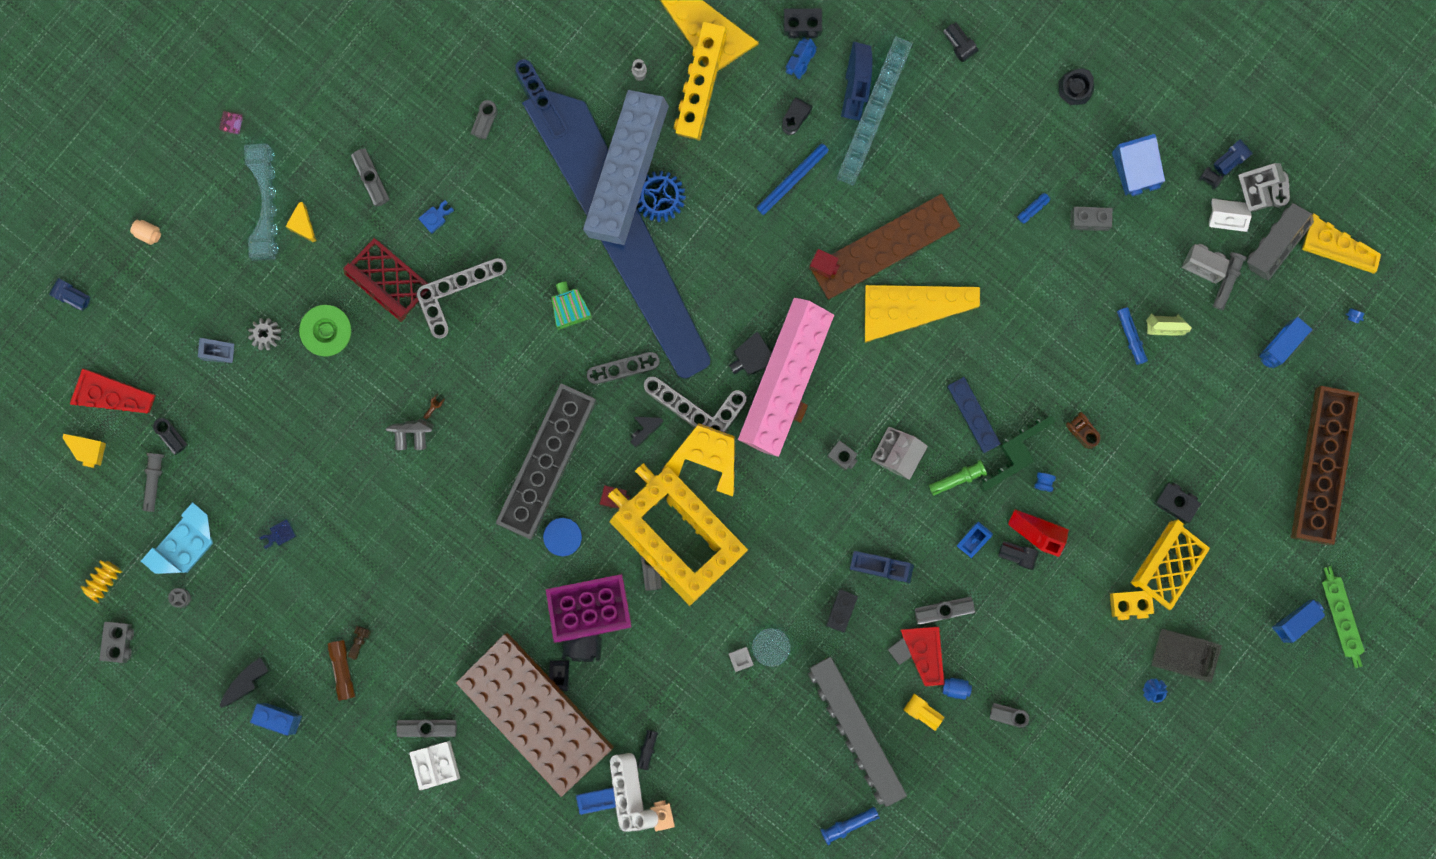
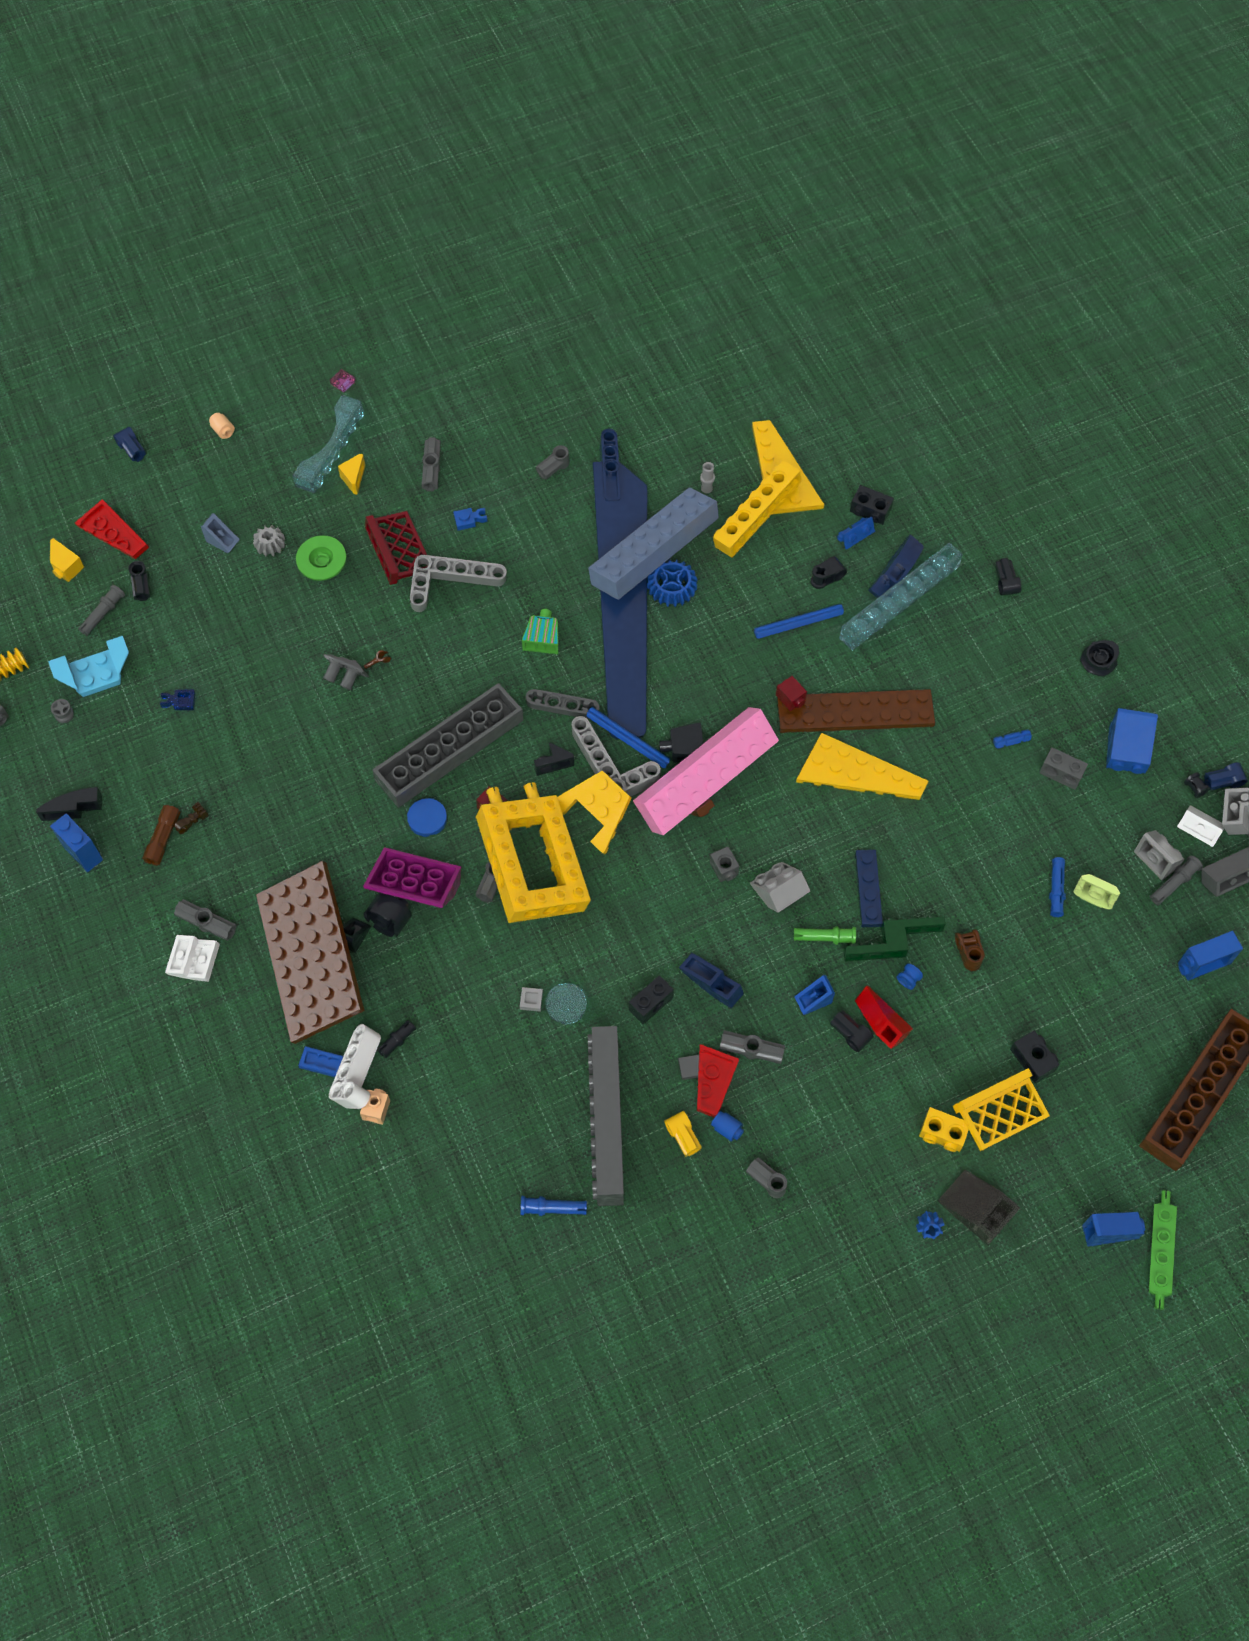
camera: 30 degrees right, 20 degrees down
(700, 375) = (628, 737): none -> blue axle

